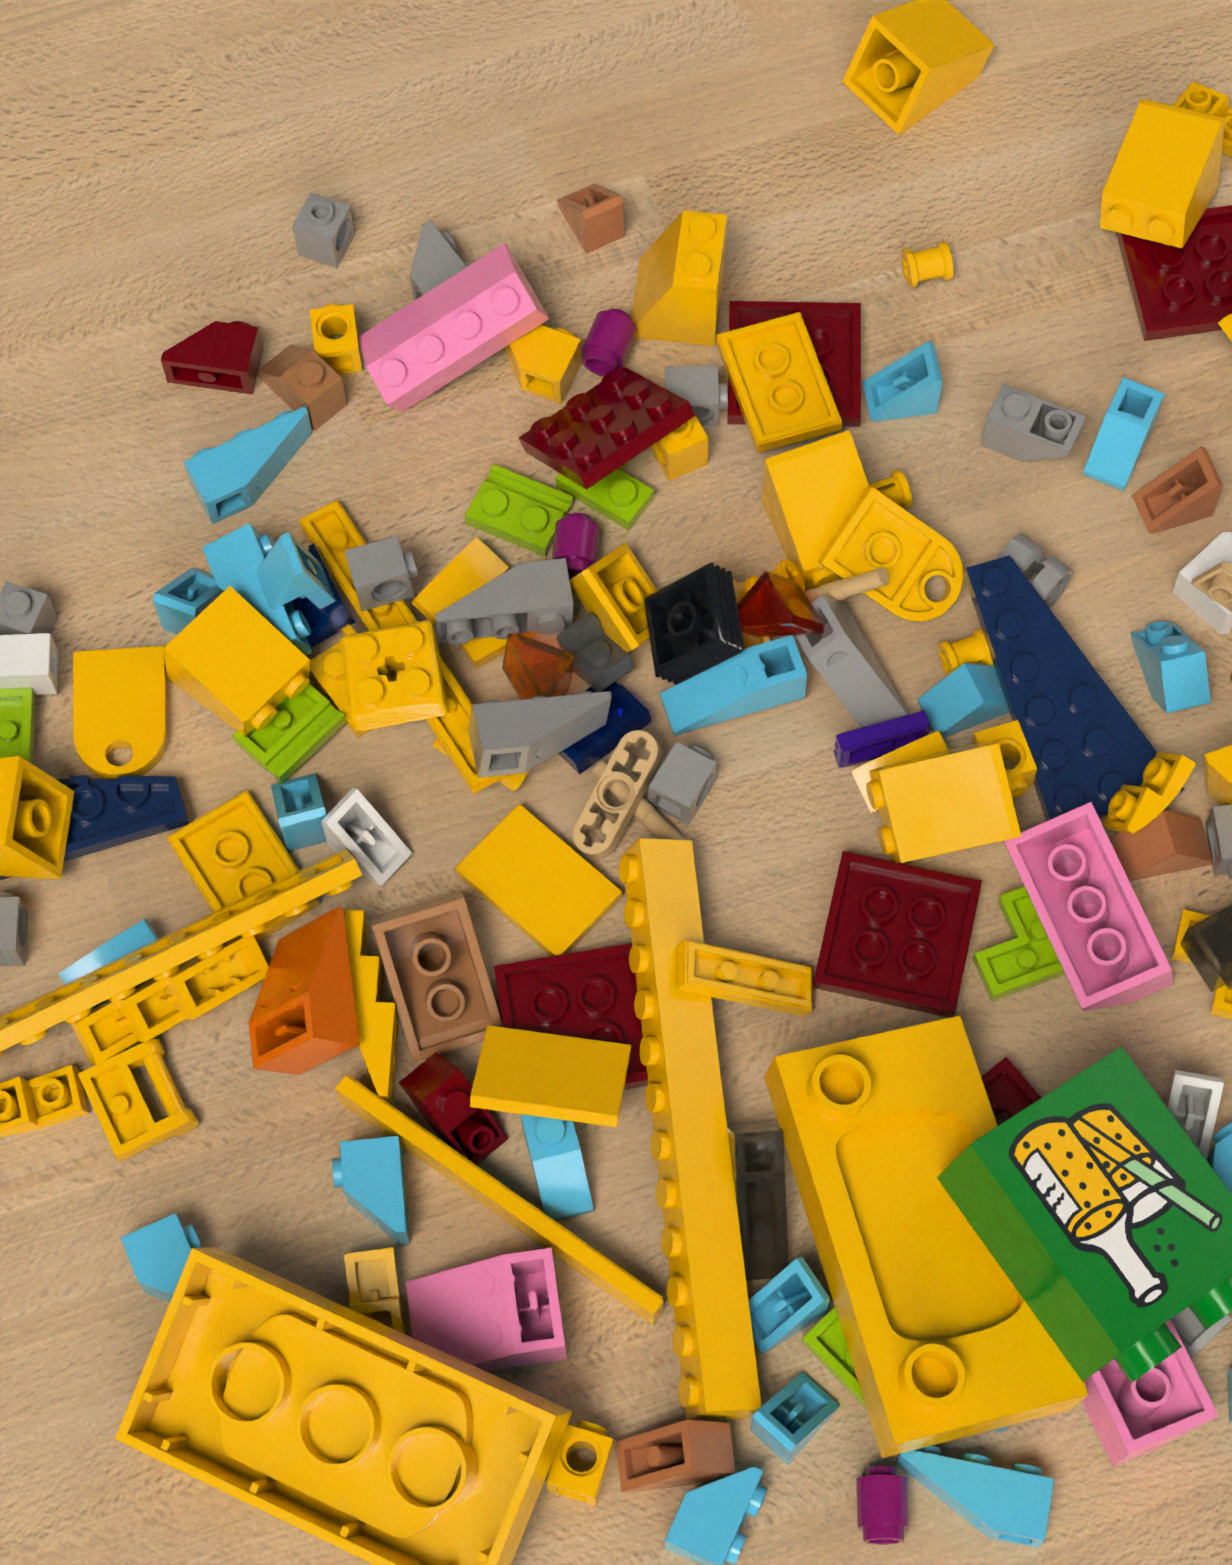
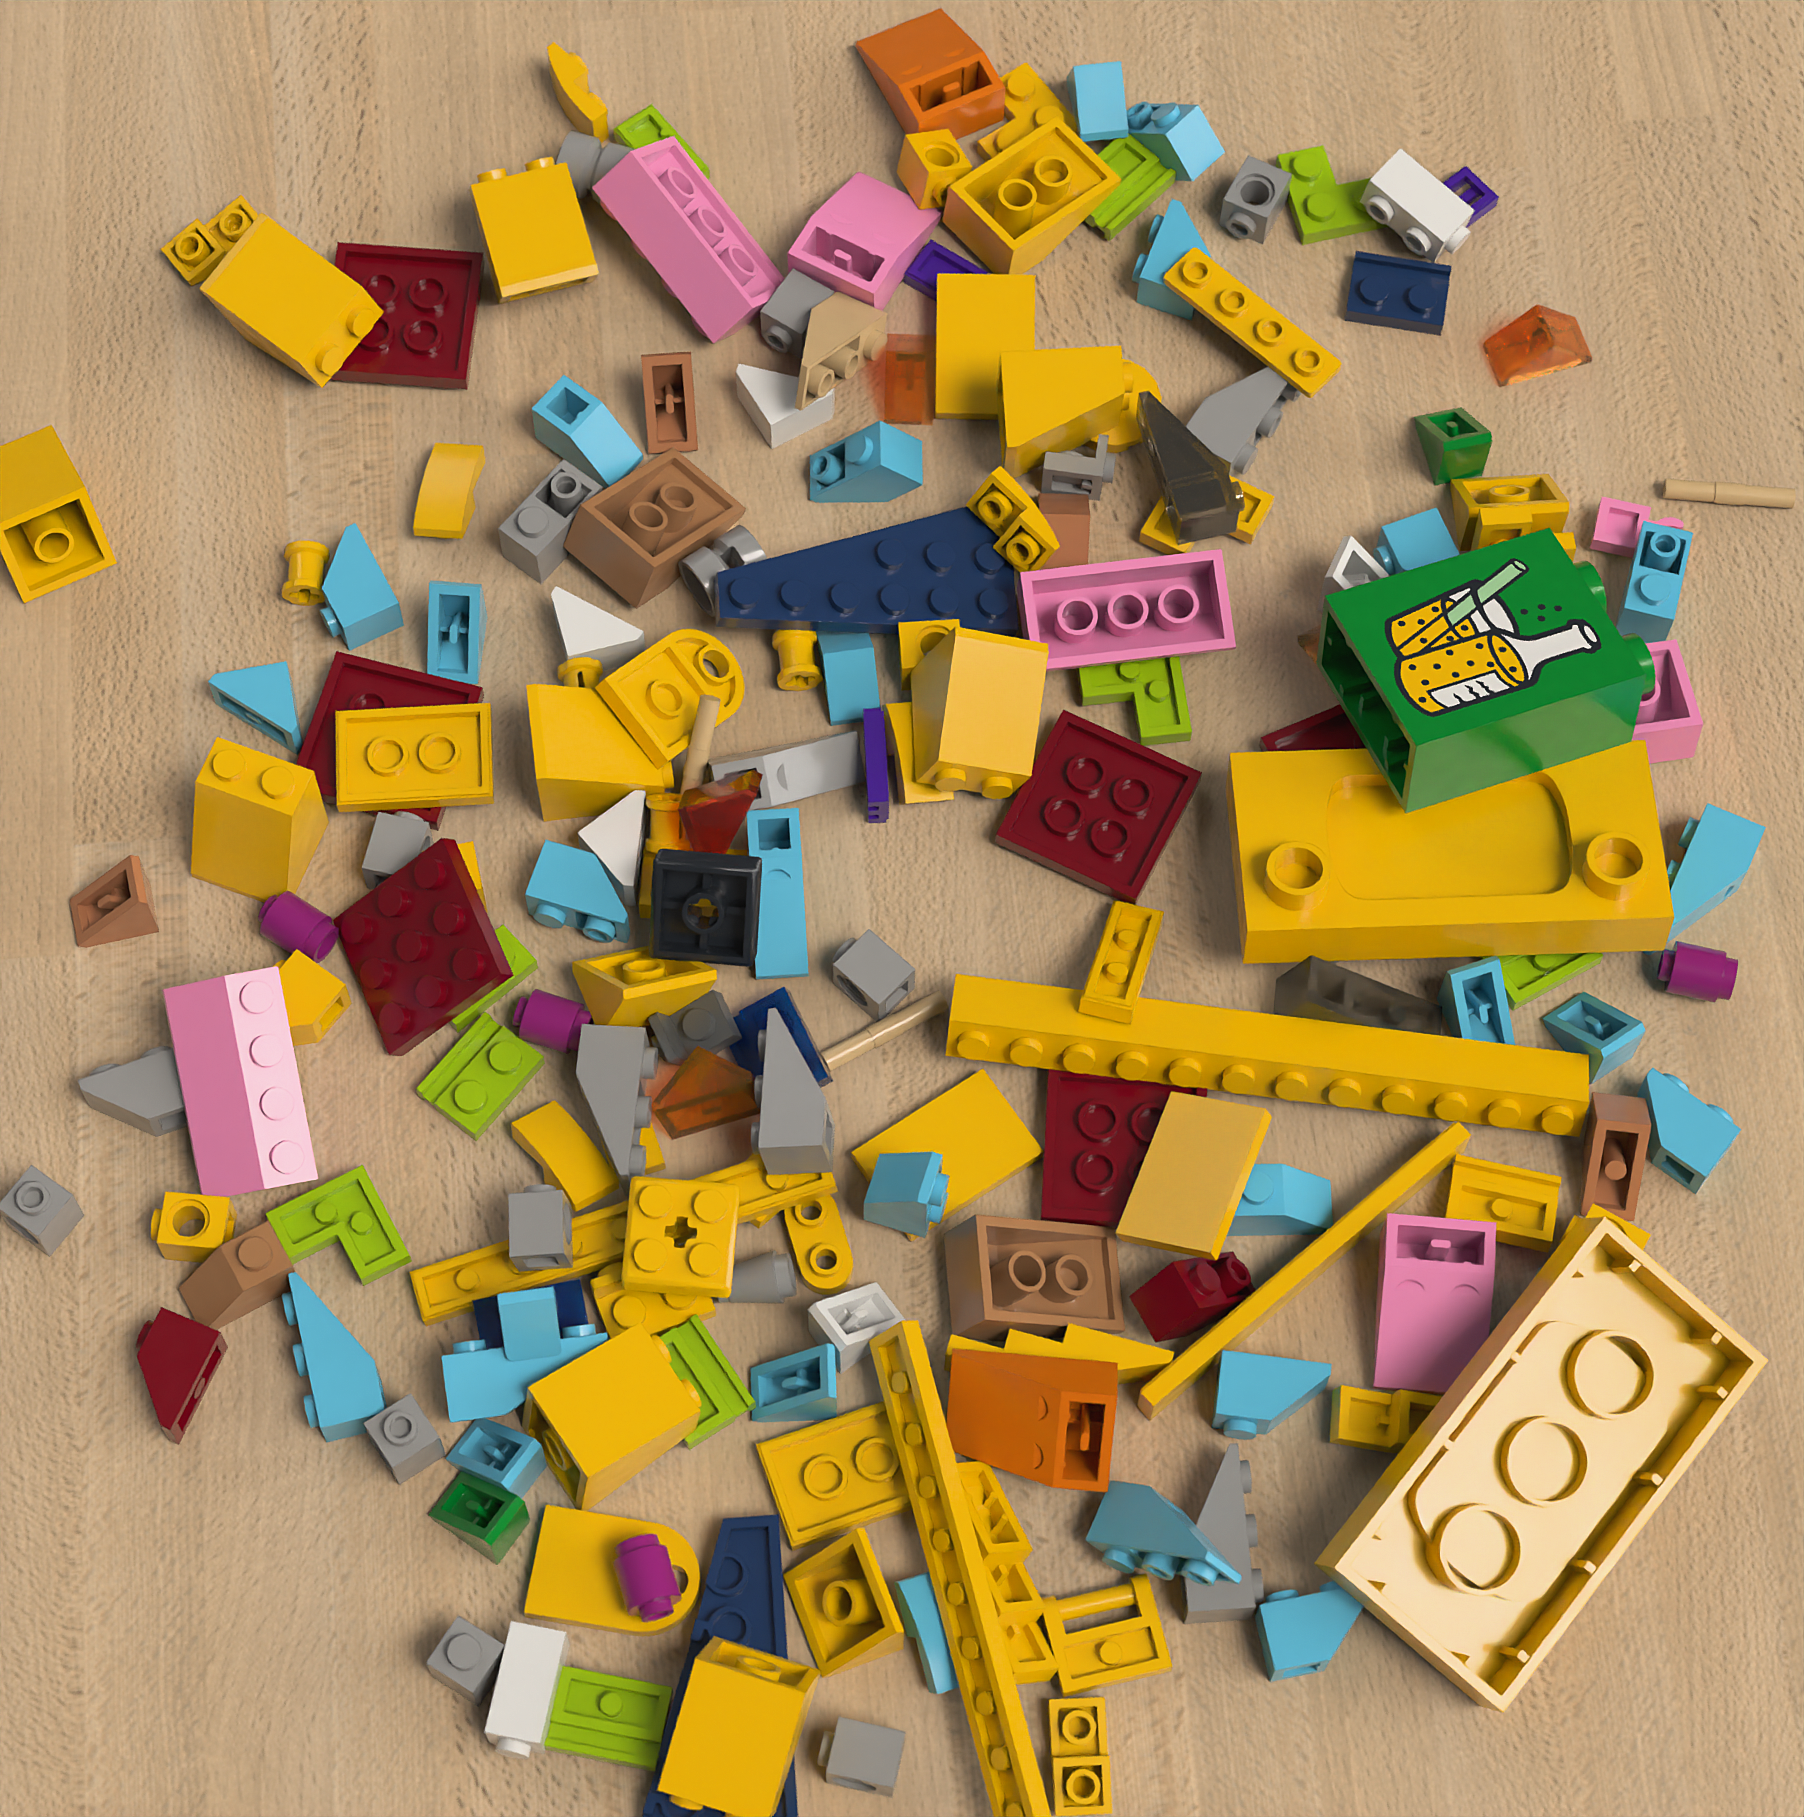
camera: 80 degrees left, 0 degrees up
(108, 726) = (646, 1577): none -> magenta brick
(125, 891) = (845, 1605): none -> yellow slope
(132, 604) = (482, 1515): none -> green slope
(190, 526) = (405, 1438): none -> light grey brick
(219, 1114) = (1151, 1533): none -> medium azure slope
(223, 1175) = (1233, 1534): none -> light grey slope
(373, 443) = (343, 1212): none -> lime plate
(389, 760) = (763, 1280): none -> light grey cone
(439, 802) = (820, 1238): none -> yellow plate
(478, 846) = (907, 1192): none -> medium azure slope
(604, 1363) = (1513, 1197): none -> yellow plate
(621, 757) = (910, 1061): tan beam -> none
(697, 532) = (575, 892): none -> medium azure slope
(749, 551) = (619, 843): none -> white slope
(803, 266) = (262, 699): none -> medium azure slope
(921, 305) = (358, 594): none -> medium azure slope
(934, 485) = (594, 632): none -> white slope
(1030, 346) = (447, 490): none -> yellow slope
(1058, 508) = (648, 524): none -> medium nougat slope

